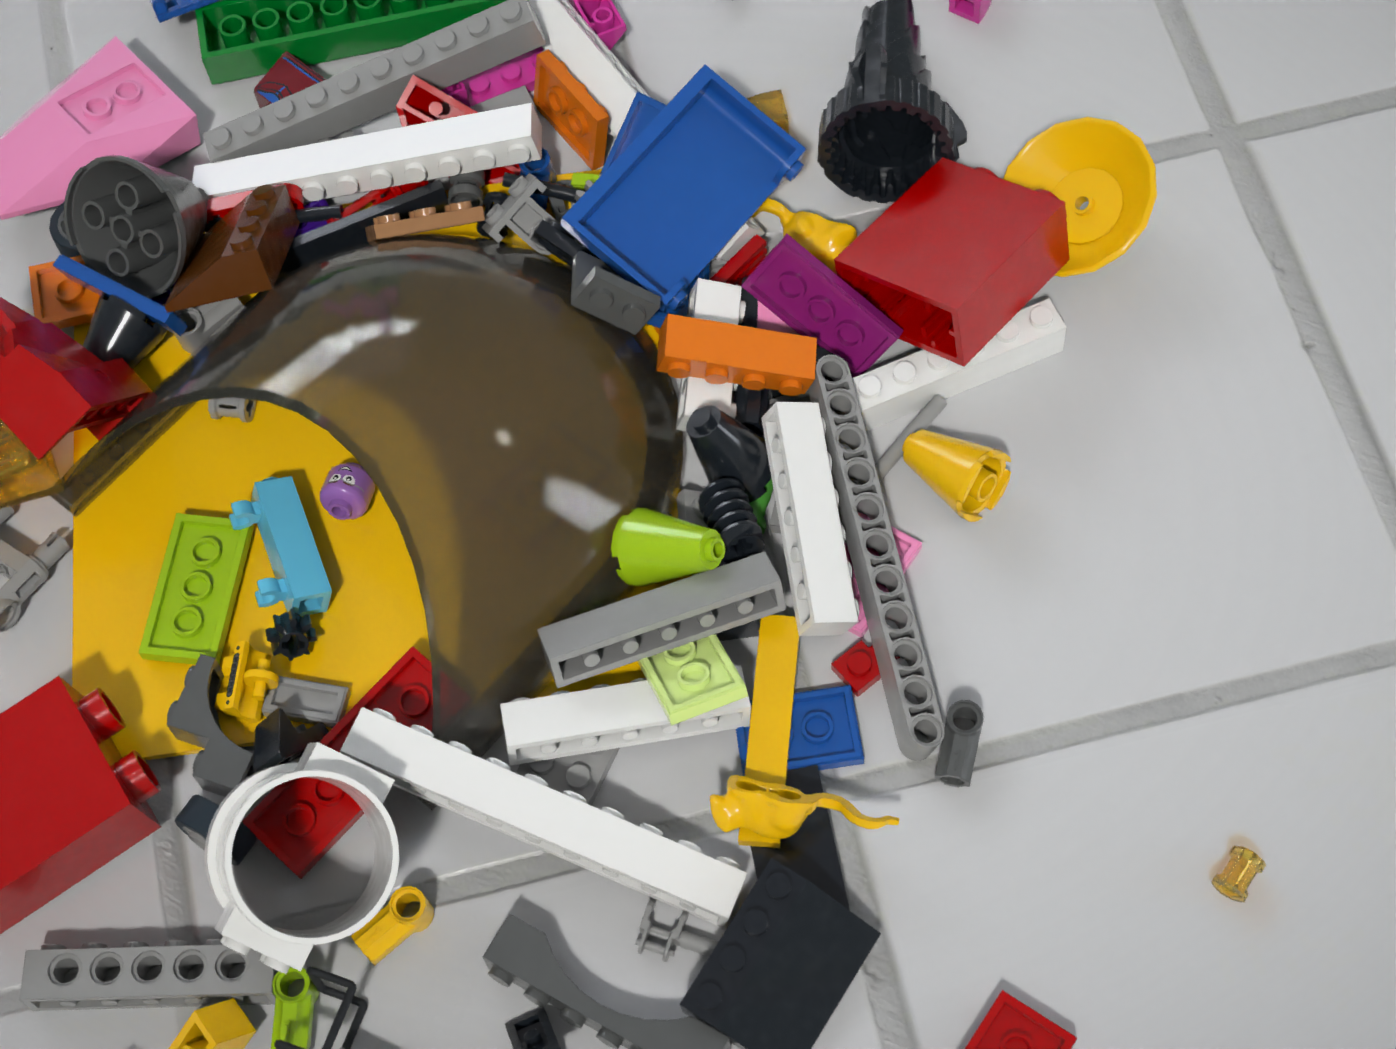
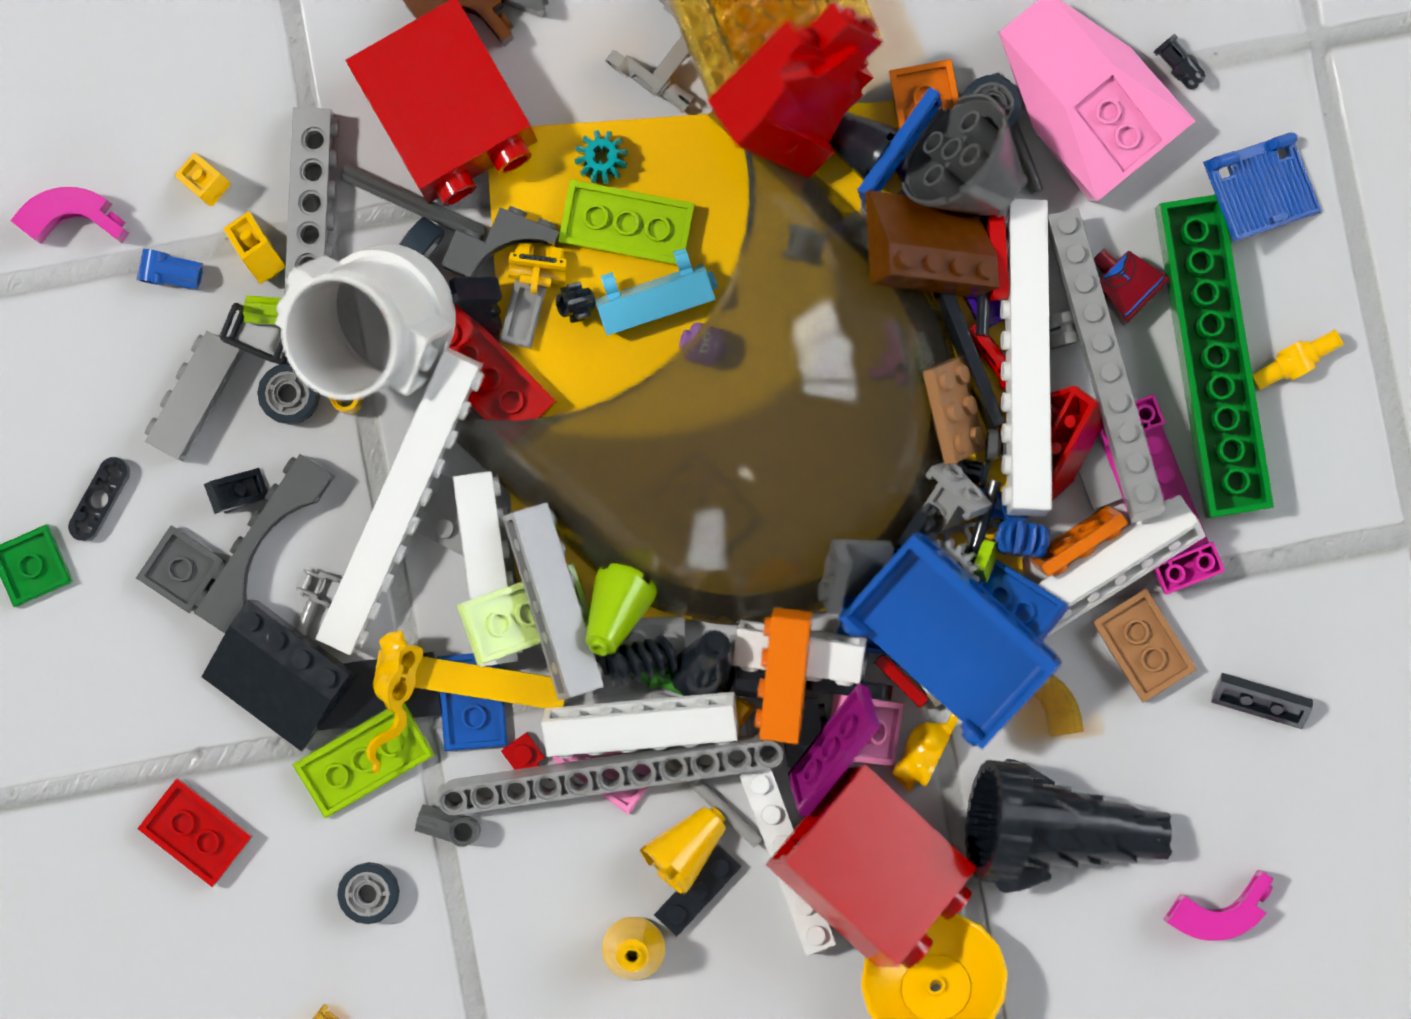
camera: 85 degrees right, 25 degrees up
(53, 70) = (1182, 64): none -> black piece
(100, 623) = (612, 156): none -> teal gear
(151, 865) = (409, 200): none -> dark grey axle
(390, 967) = (270, 396): none -> wheel
(569, 152) = (1022, 539): none -> blue gear
(680, 50) = (1144, 645): none -> medium nougat plate
(887, 864) = (342, 772): none -> lime tile
(1029, 477) = (683, 908): none -> black plate
(1064, 815) = (350, 897): none -> wheel
(1086, 519) = (636, 935): none -> yellow cone

